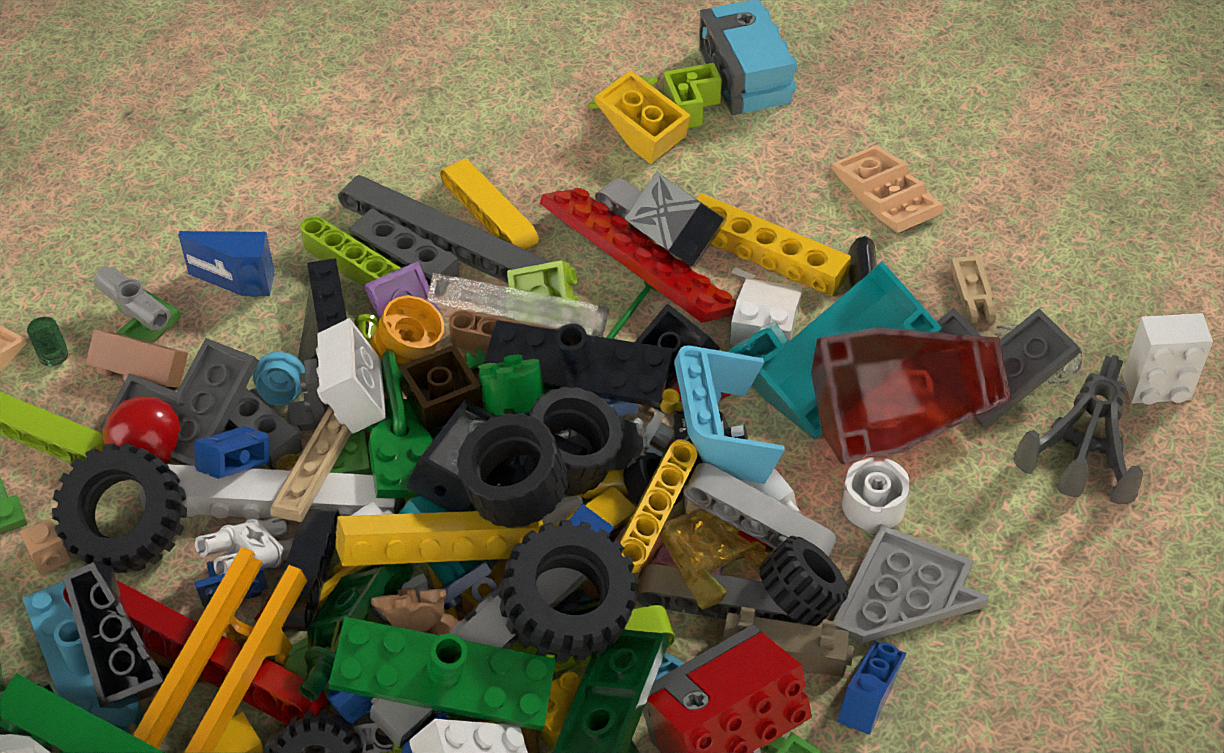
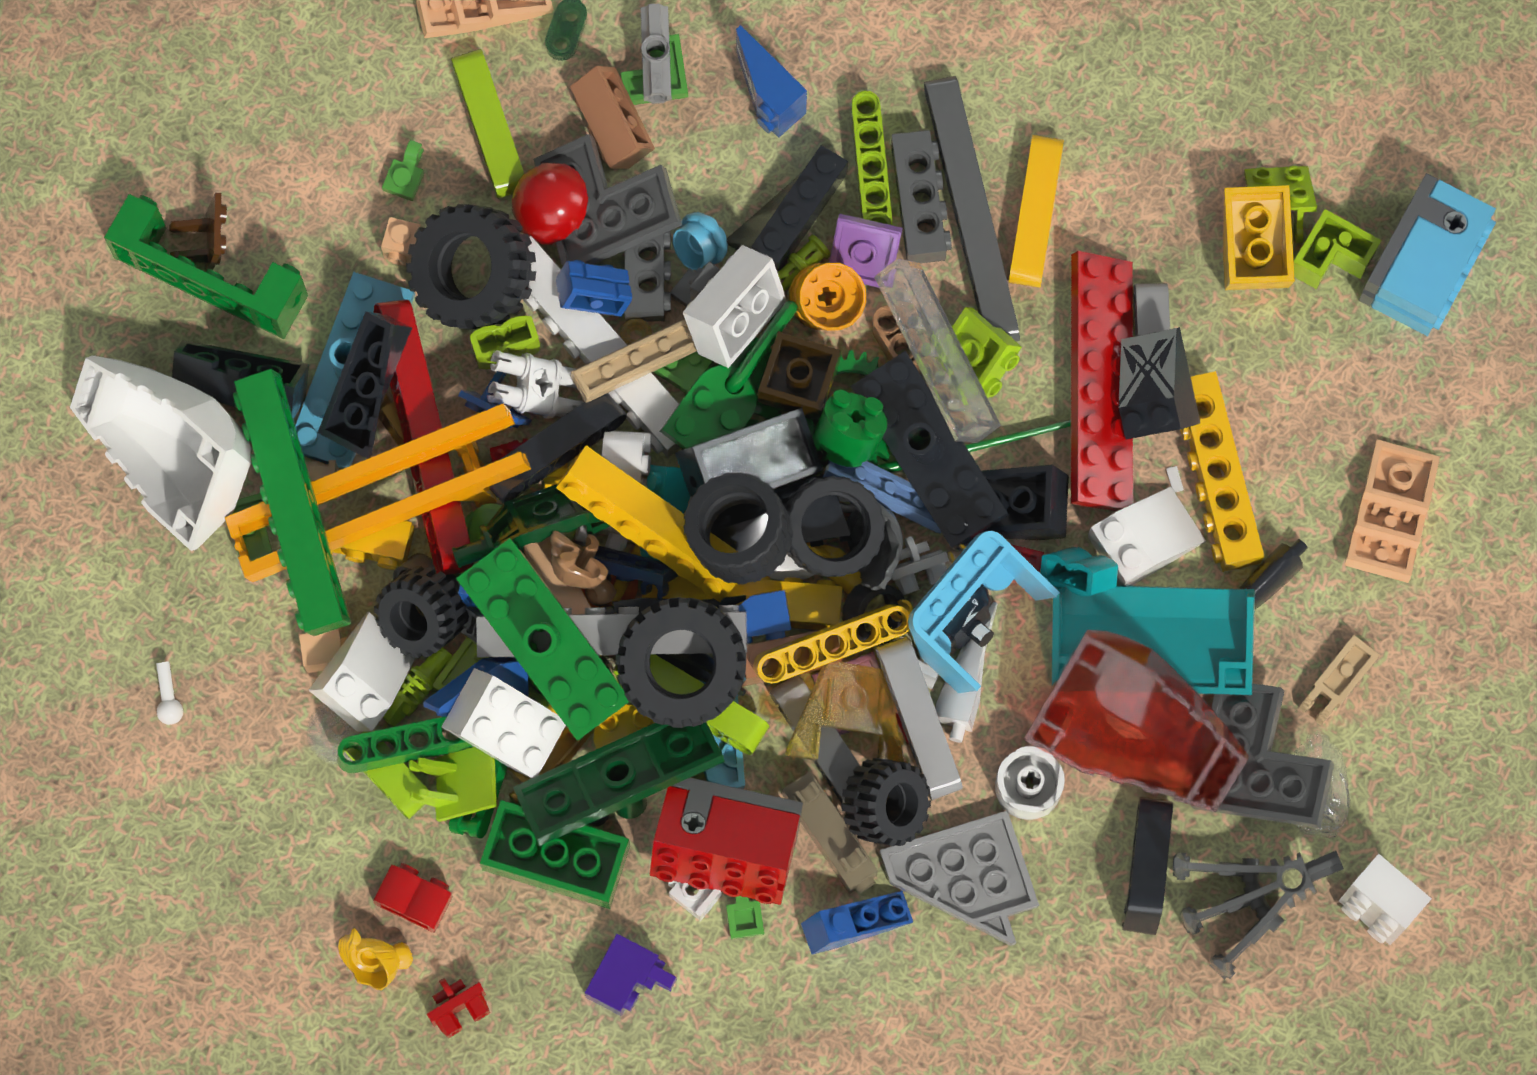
camera: 45 degrees right, 25 degrees up
(180, 547) = (512, 337): none -> lime brick
(1013, 473) = (1148, 866): none -> black beam

